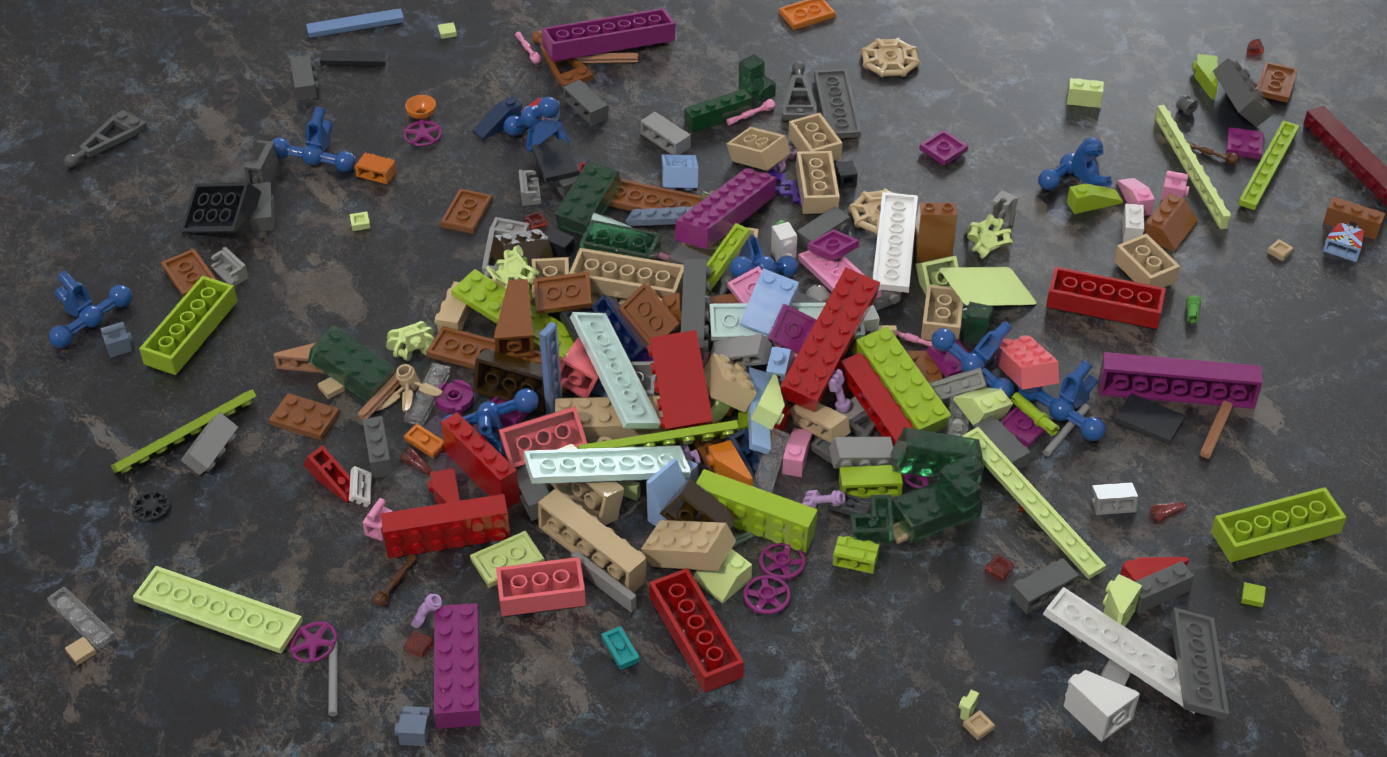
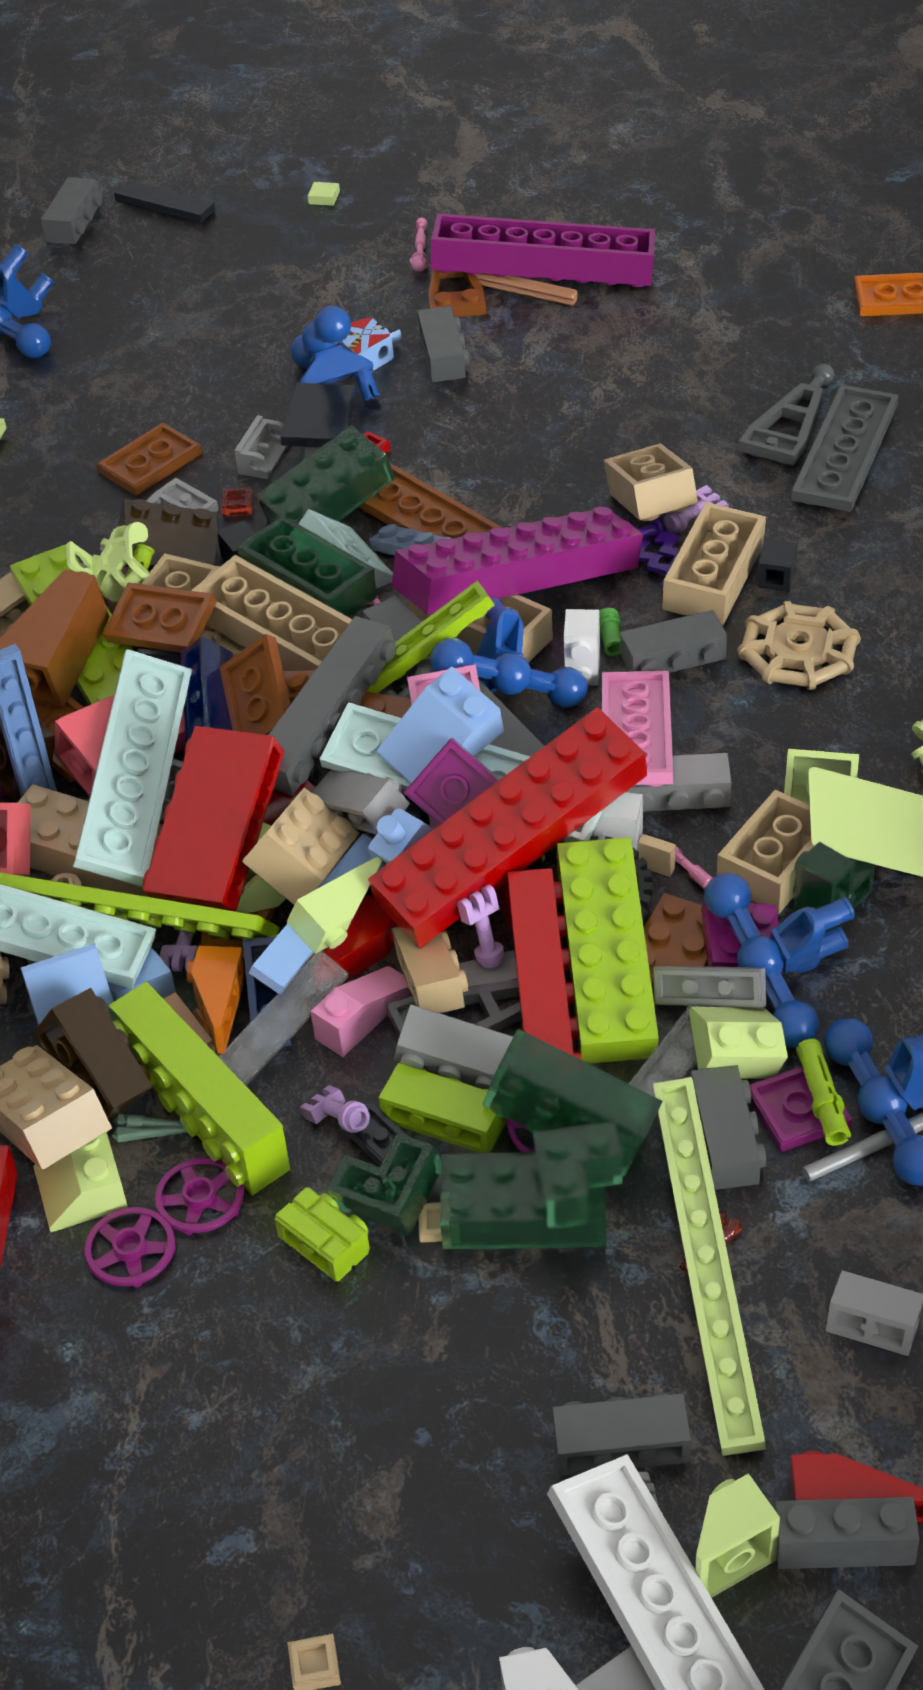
camera: 30 degrees right, 0 degrees up
(355, 23) = (205, 154): medium blue tile -> none
(376, 168) = (67, 361): orange brick -> none
(418, 104) = (196, 290): orange piece -> none
(422, 133) = (176, 329): magenta wheel -> none
(494, 120) = (278, 340): dark blue slope -> none
(665, 134) = (529, 423): light grey brick -> none
(679, 171) = (506, 485): light blue slope -> none
(716, 110) = (637, 407): dark green brick -> none
(753, 79) = (728, 373): clear green brick -> none
(767, 106) = (730, 421): bright pink piece -> none
(815, 134) = (763, 486): tan brick -> none
(833, 245) = (661, 673): magenta plate -> none
(895, 241) = (769, 701): white plate -> none
(934, 231) = (847, 700): dark orange slope -> none
(968, 704) = (315, 1614): yellowish green plate -> none
(999, 567) = (568, 1361): clear red tile -> none
(1027, 363) = (859, 989): coral brick -> none

